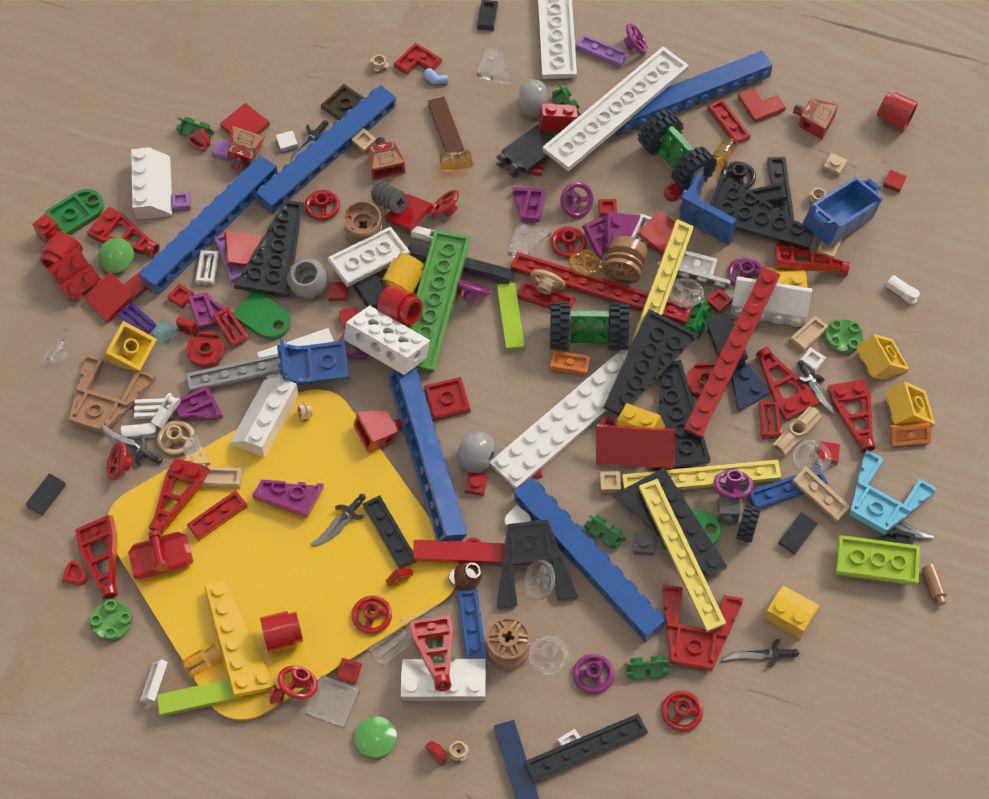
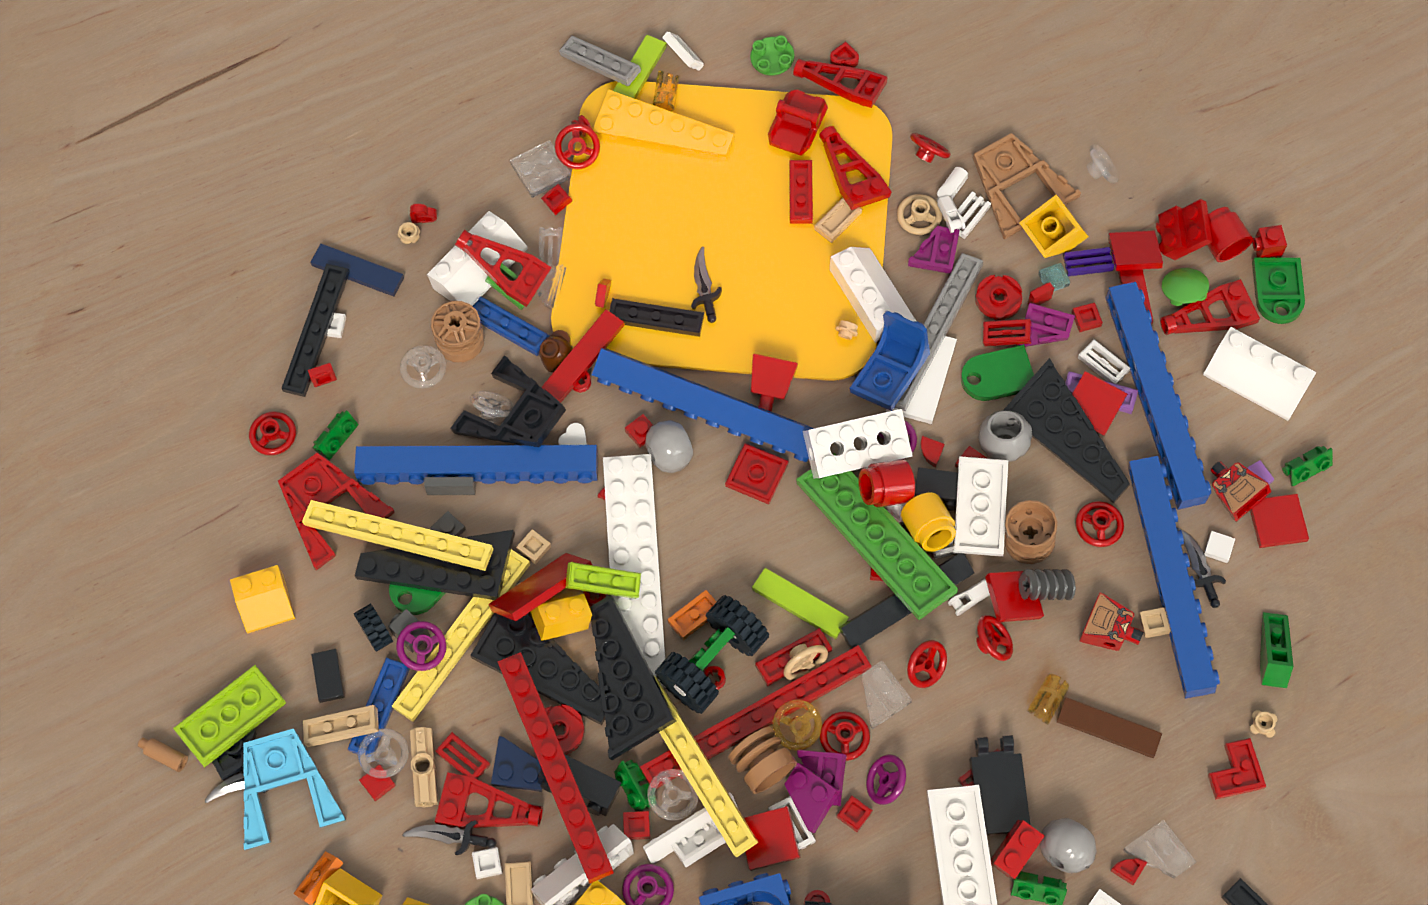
camera: 130 degrees right, 5 degrees up
(45, 494) = (948, 78): black tile -> none
(132, 447) = (943, 167): piece -> none
(181, 201) = (1215, 392): medium lavender tile -> none
(194, 451) = (884, 214): clear tile -> none
(200, 139) = (1286, 457): red tile -> none
(207, 732) = (600, 60): none -> light grey tile
(281, 631) = (633, 159): red piece -> none
(289, 497) = (765, 258): magenta wing -> none
(331, 78) = (1276, 651): none -> green slope
(341, 101) = (1231, 644): dark brown tile -> none
(368, 607) = (588, 237): red piece -> none
(375, 737) = (481, 182): bright green dish -> none
(434, 78) = (1192, 766): light blue arm -> none
(473, 289) = (860, 584): magenta piece -> none
(490, 227) = (924, 661): none -> red piece
(517, 73) = (1129, 869): none -> red tile
(530, 203) = (926, 732): magenta wing -> none
(593, 665) = (368, 379): magenta piece -> none
(600, 412) = (603, 580): none -> lime tile
(611, 535) = (483, 506): green hinge -> none
(614, 710) = (322, 375): none -> red tile
(617, 560) = (450, 486): none -> dark grey tile
(761, 653) = (255, 541): piece -> none
(851, 392) = (418, 866): red plate -> none

